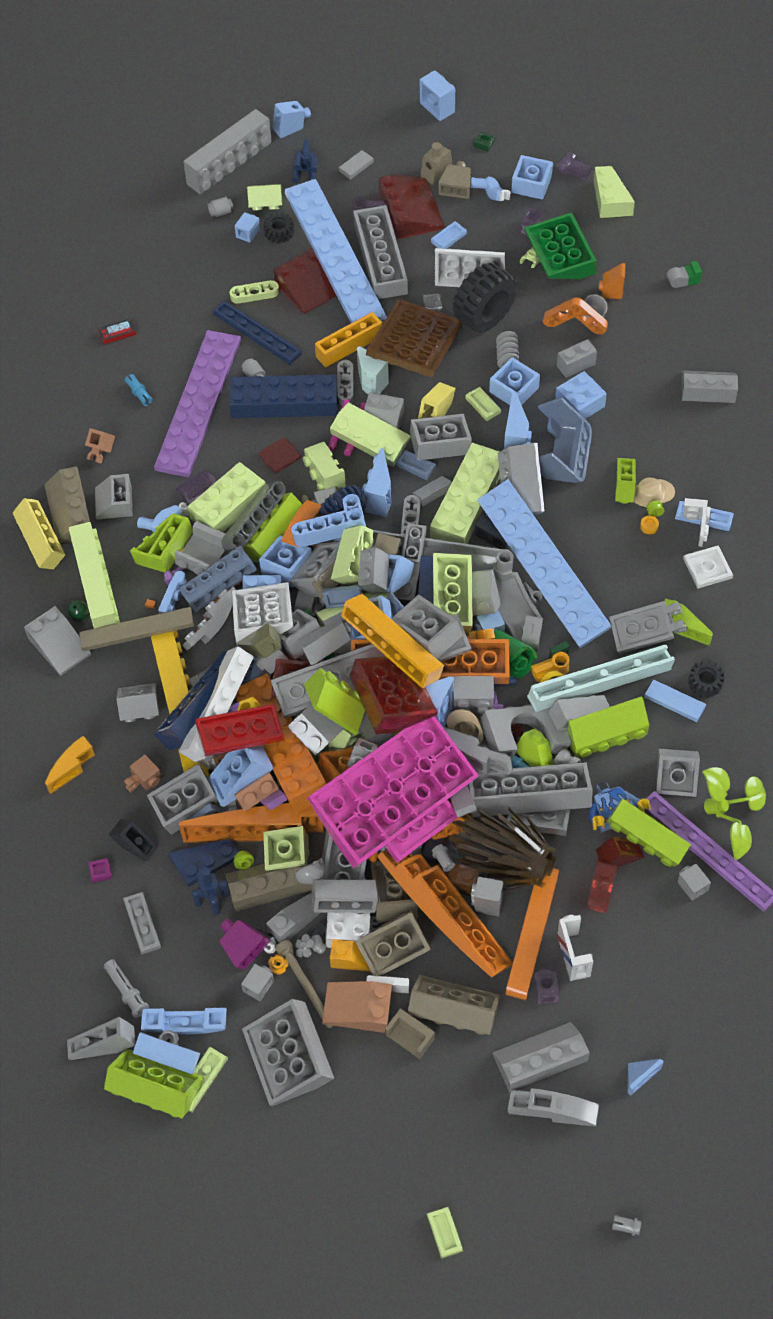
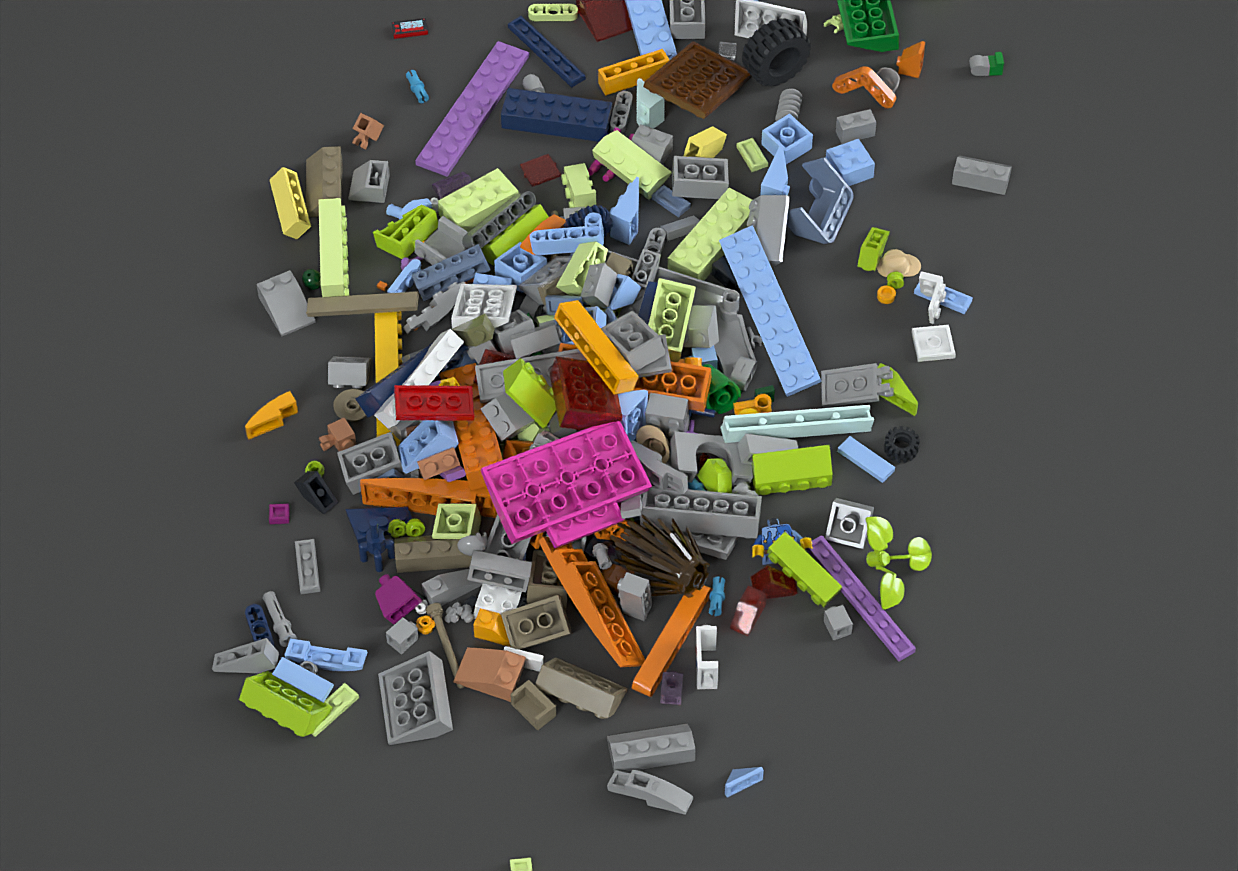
camera: 10 degrees right, 5 degrees down
(108, 995) = (261, 622): none -> dark blue beam
(126, 810) = (315, 466): none -> lime plate
(142, 734) = (346, 401): none -> dark tan dish
(223, 861) = (393, 525): none -> lime plate
(566, 876) = (717, 596): none -> dark azure pin

